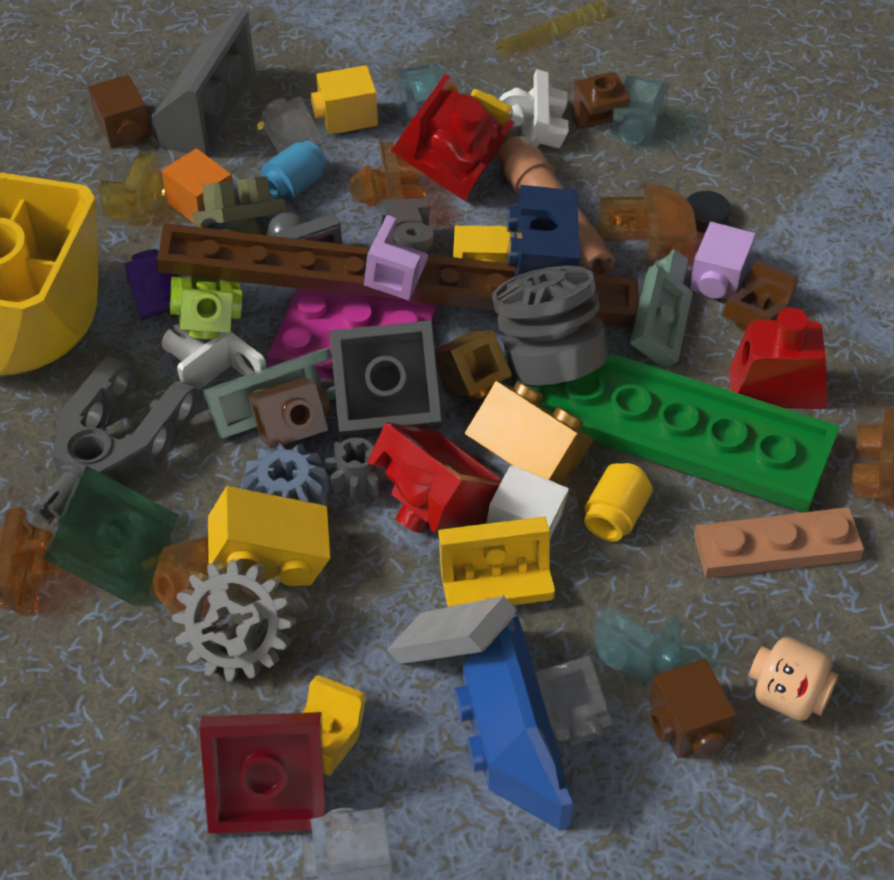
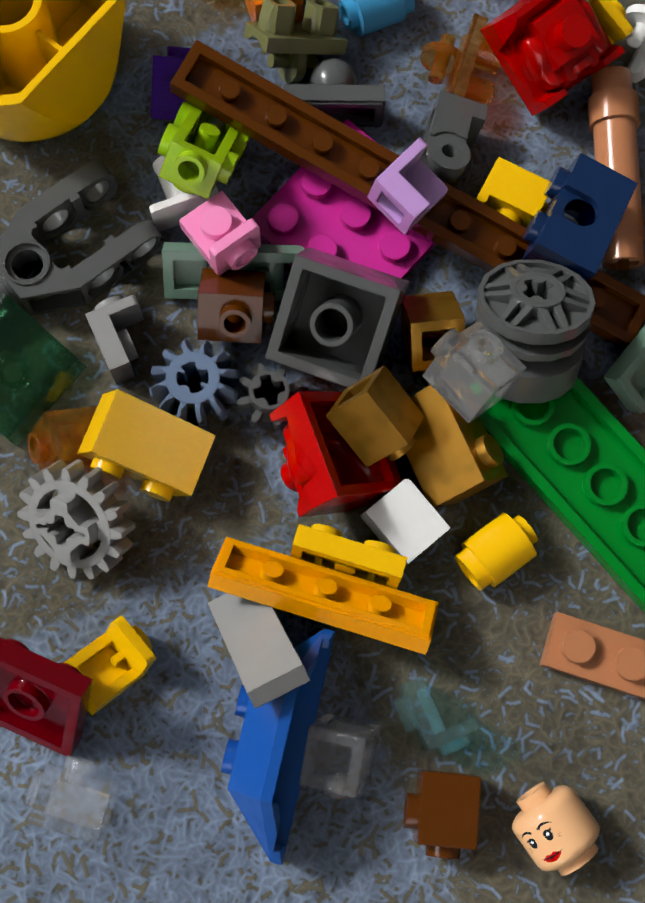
camera: 20 degrees right, 25 degrees up
(190, 477) = (115, 346): none -> light grey bracket
(254, 355) = (222, 234): none -> bright pink bracket
(461, 427) = (376, 417): none -> pearl gold brick
(489, 581) = (324, 595): none -> light orange tile
(521, 355) = (472, 370): none -> clear brick

